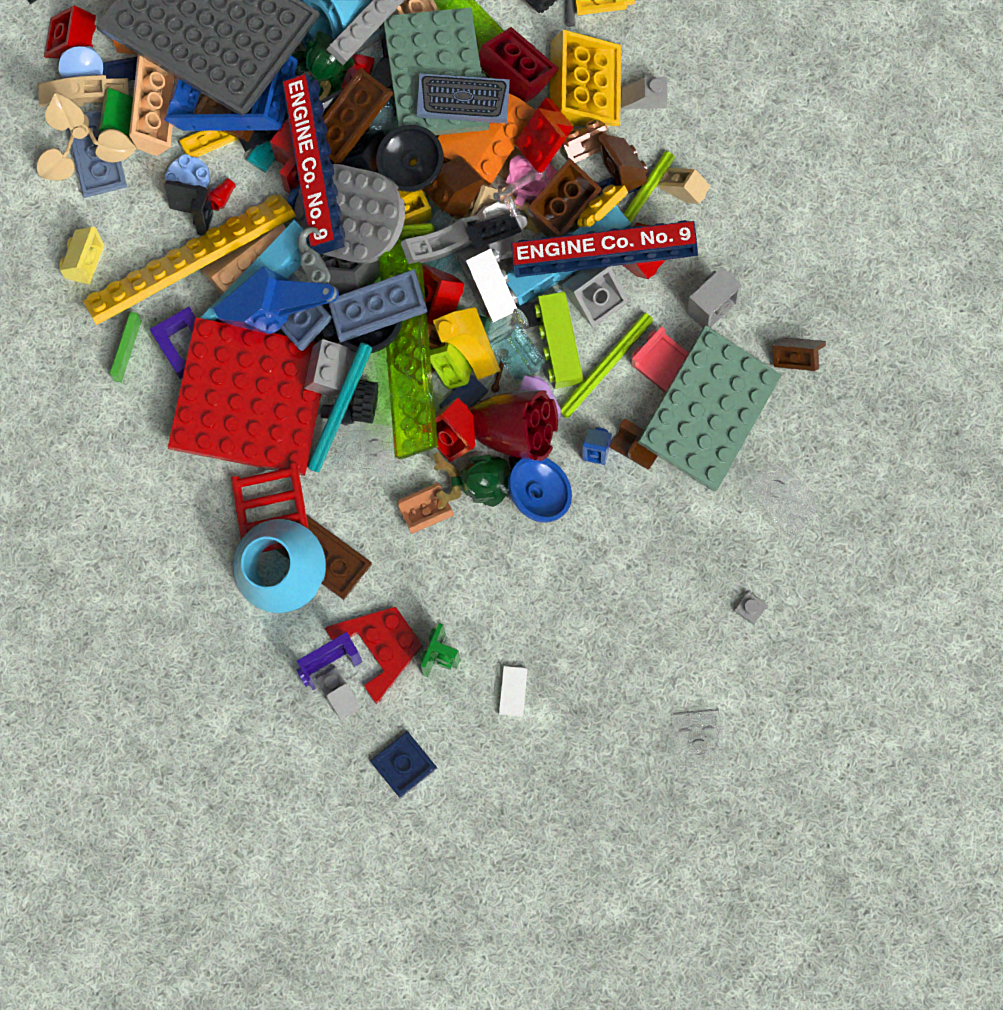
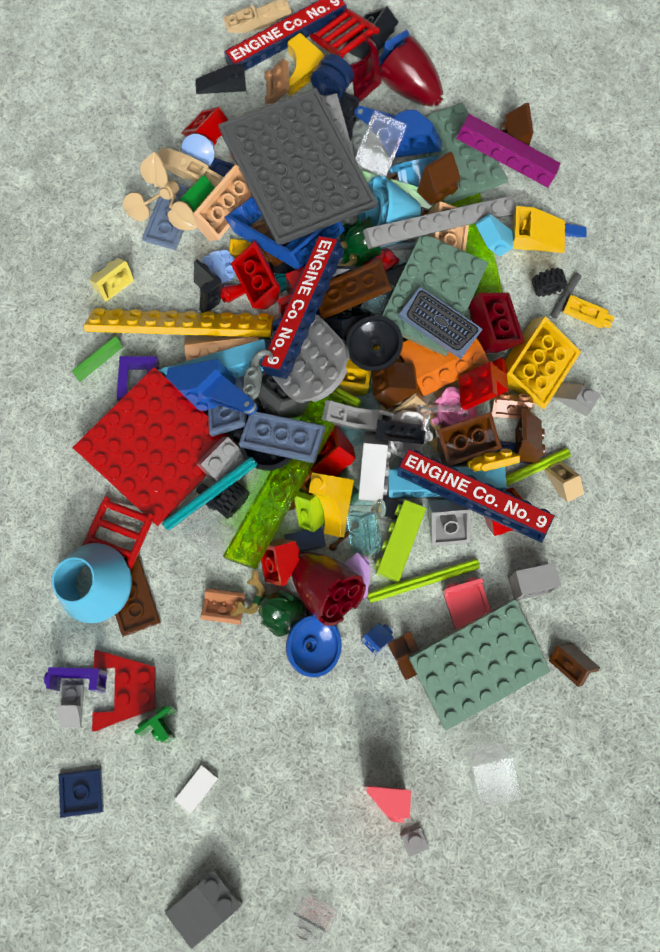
camera: 25 degrees right, 0 degrees up
(238, 163) = (256, 277): none -> red slope
(592, 787) = (204, 908): none -> dark grey slope
(702, 579) = (391, 801): none -> coral slope

